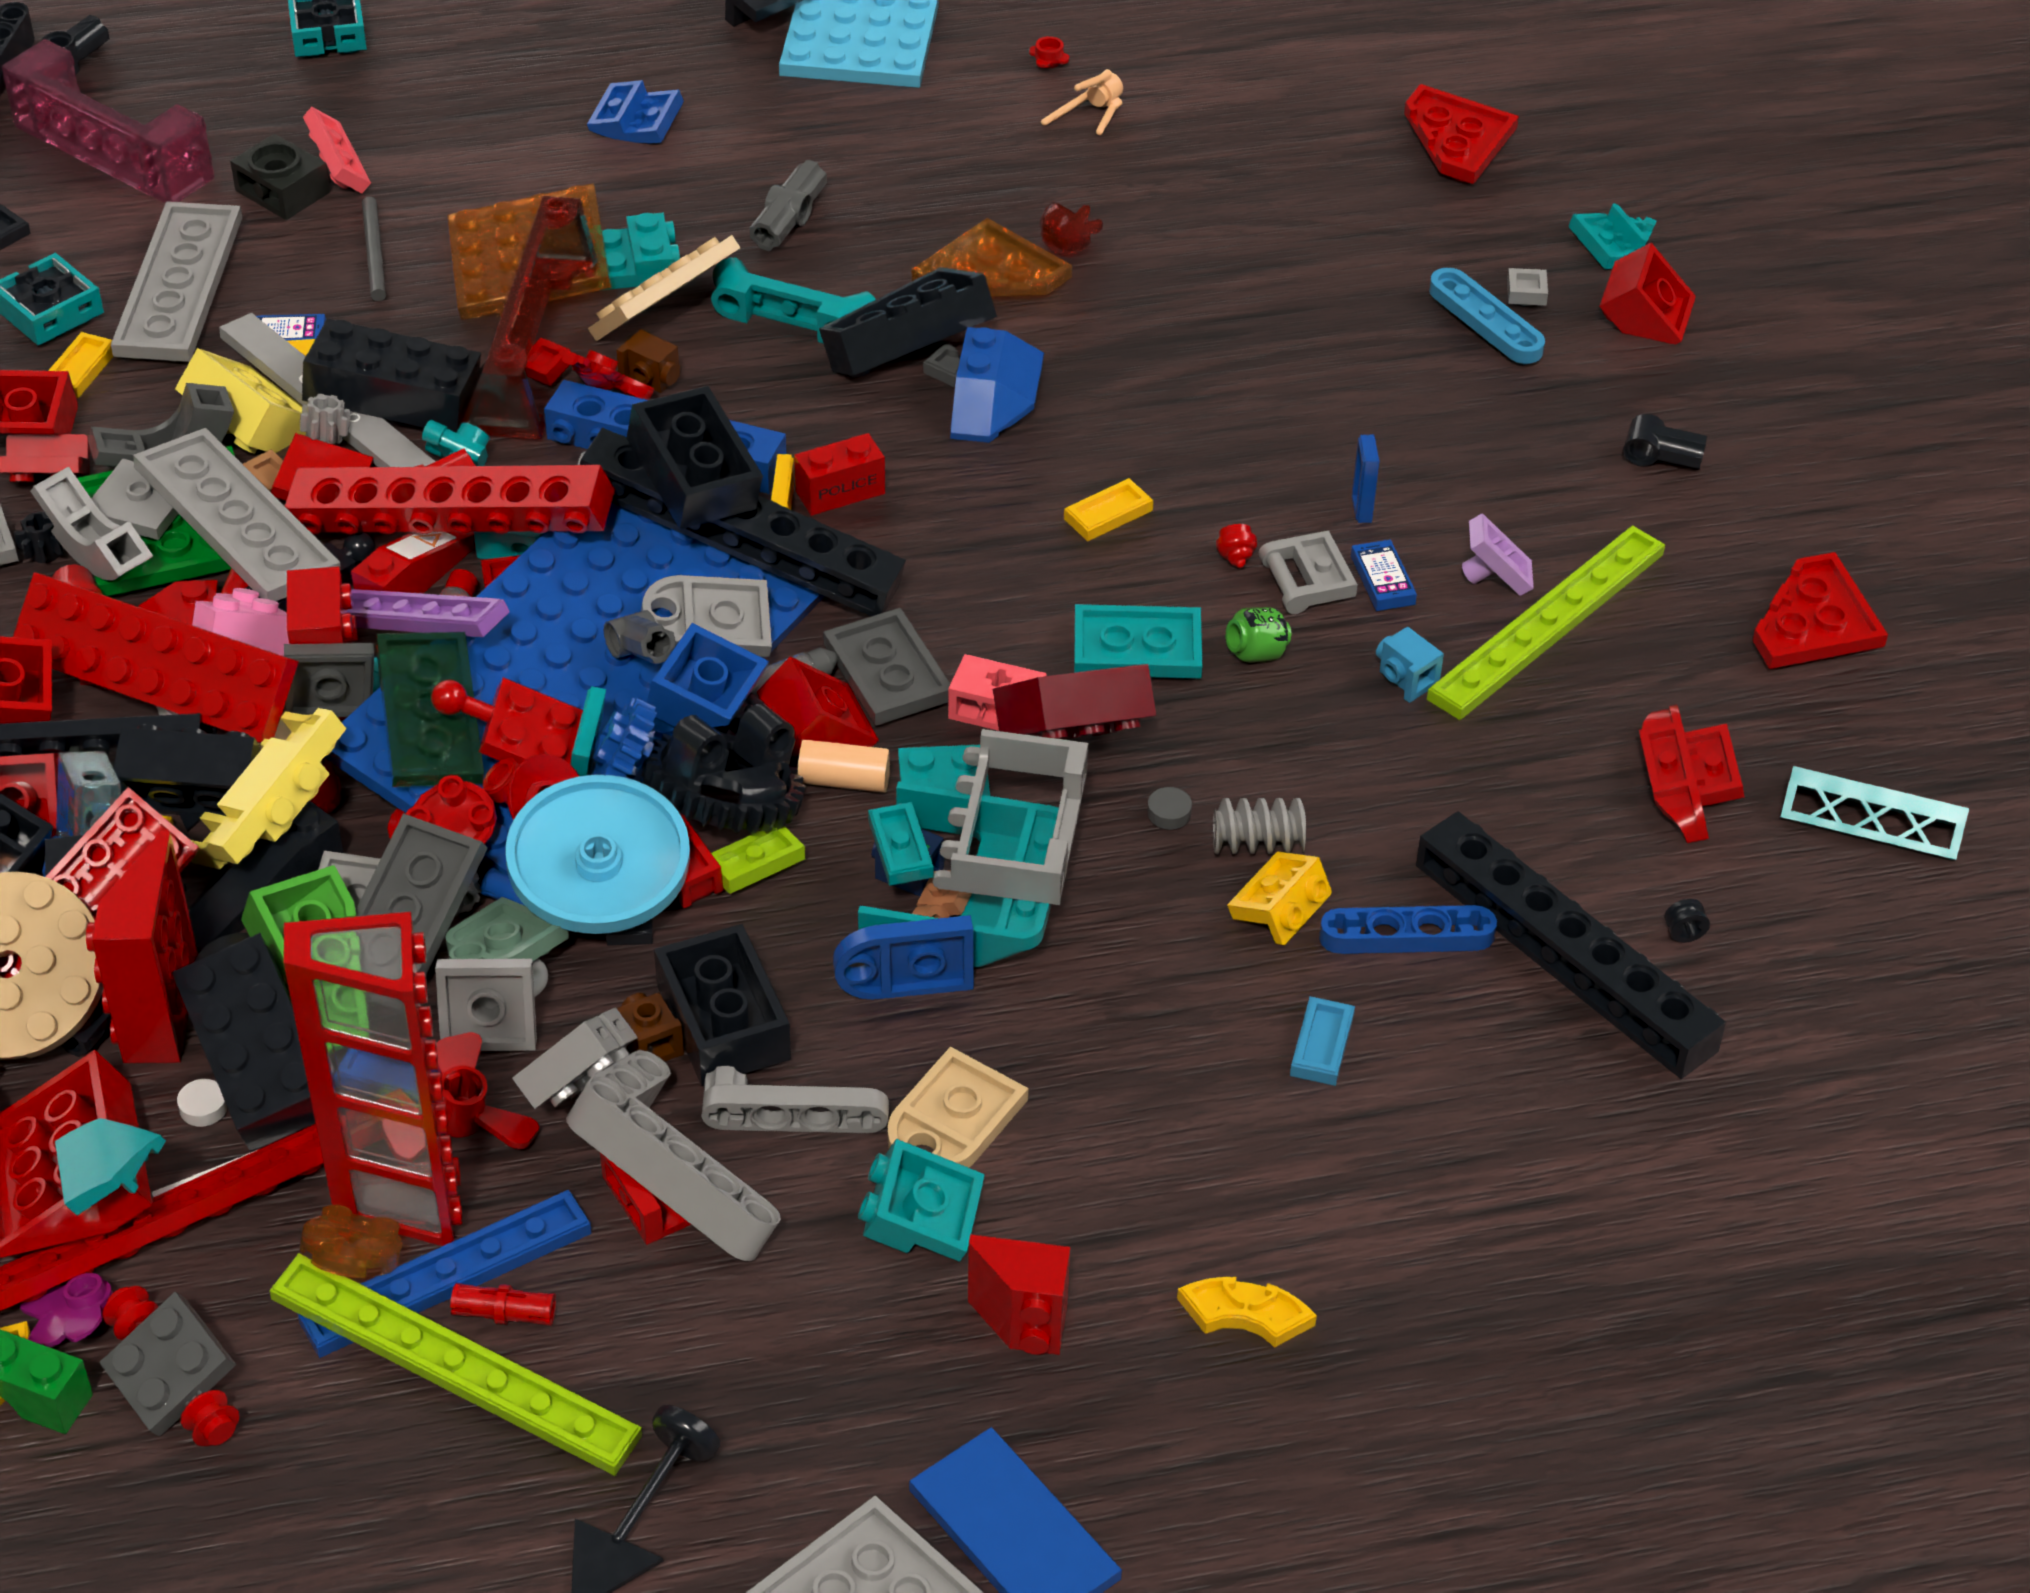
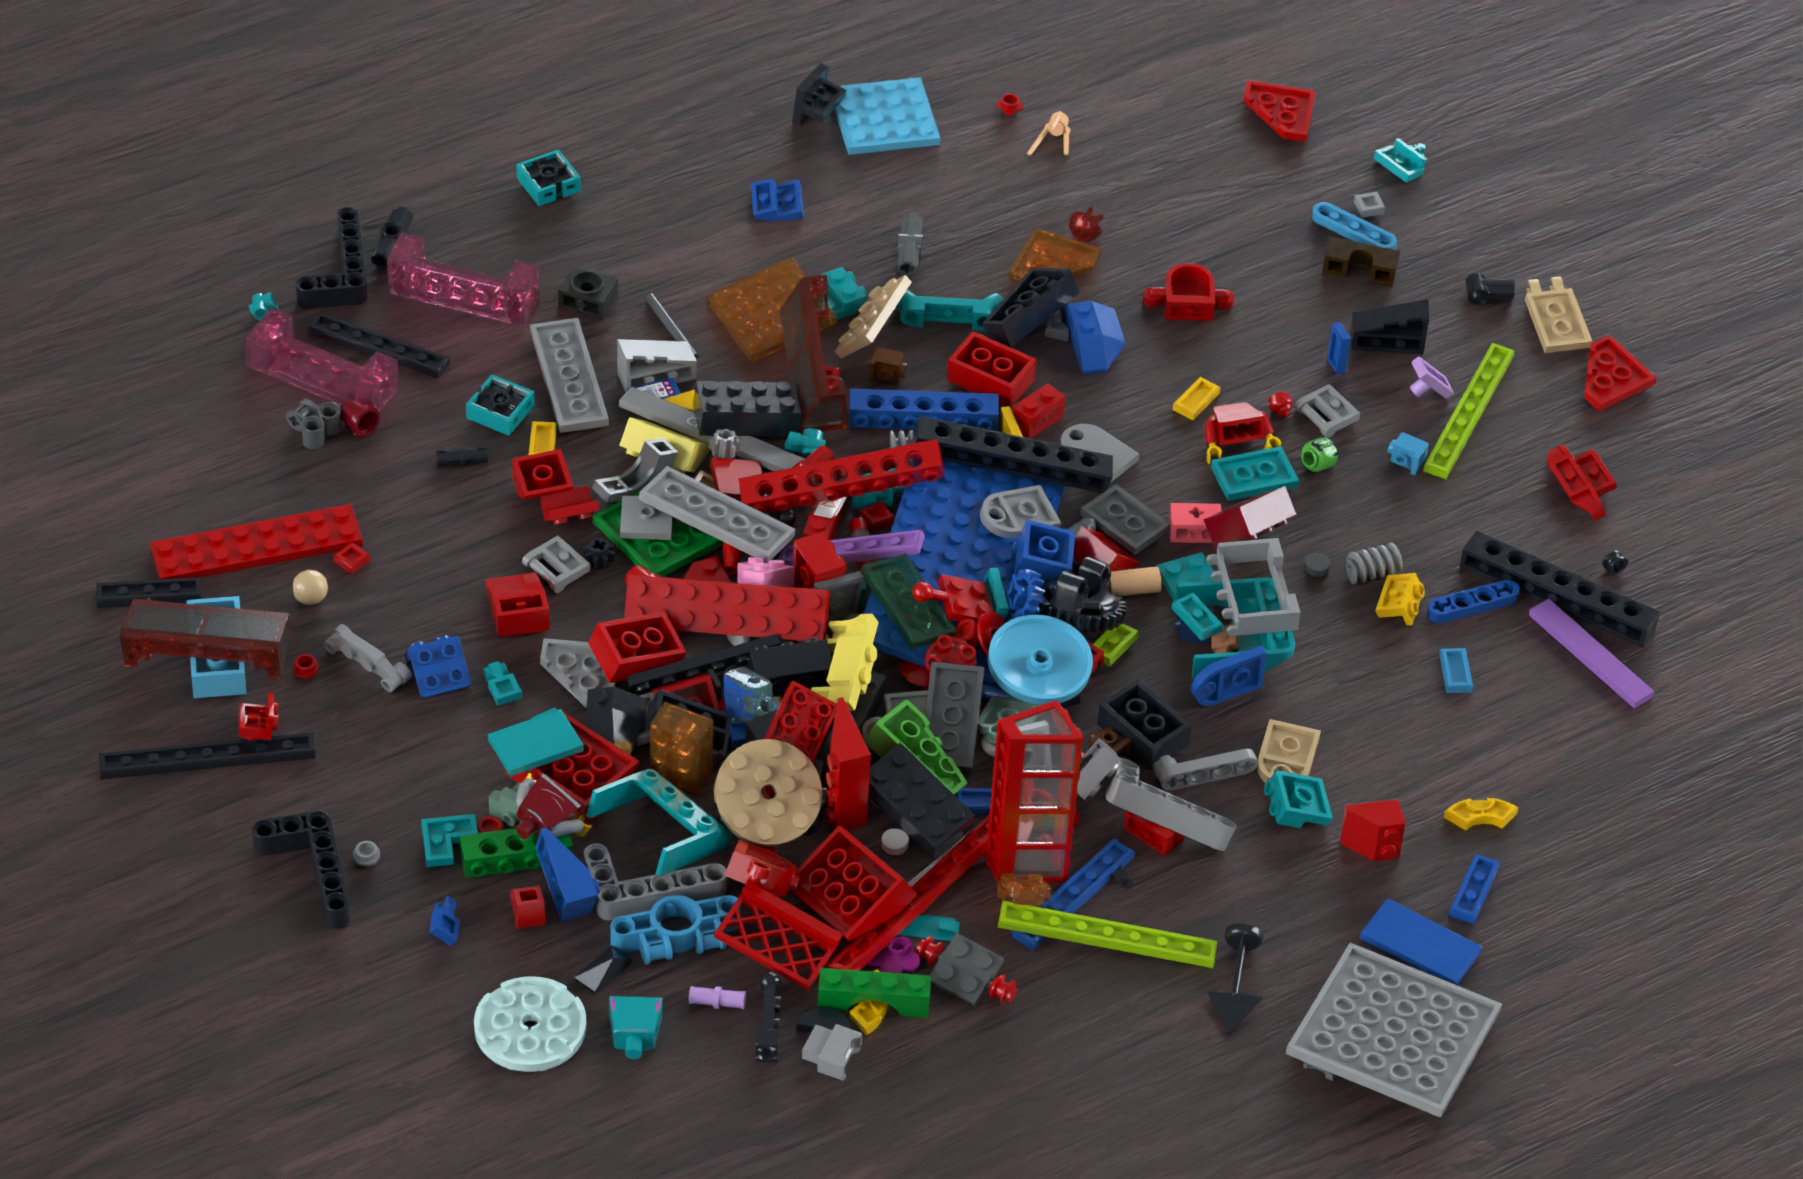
camera: 20 degrees left, 0 degrees up
(85, 531) = (638, 547): light grey arch -> none
(100, 1159) = (891, 875): teal slope -> none
(171, 1269) = (938, 927): none -> teal piece
(302, 282) = (652, 361): none -> light grey wedge
(336, 151) = (610, 267): coral plate -> none
(503, 1304) = (1114, 901): red pin -> none
(547, 1262) = (1119, 873): none -> black piece
(600, 372) = (870, 379): red animal -> none
(639, 636) = (997, 534): dark grey piece -> none
(694, 457) = (984, 422): black brick -> none
(799, 395) = (991, 368): none -> red brick
(929, 560) = (1098, 440): none -> light grey tile
(1141, 559) = (1237, 424): none -> red torso
(1165, 1451) = (1474, 889): none -> blue tile
(1174, 356) = (1189, 294): none -> red piece
(1383, 575) = (1368, 403): tile -> none
(1450, 349) = (1378, 261): none -> dark brown arch
(1470, 468) = (1391, 328): none -> black wedge
(1580, 1070) = (1591, 653): none -> medium lavender tile
(1647, 297) = (1441, 197): red slope -> none
(1759, 509) = (1557, 317): none -> tan tile
(1877, 797) = (1686, 472): fence -> none

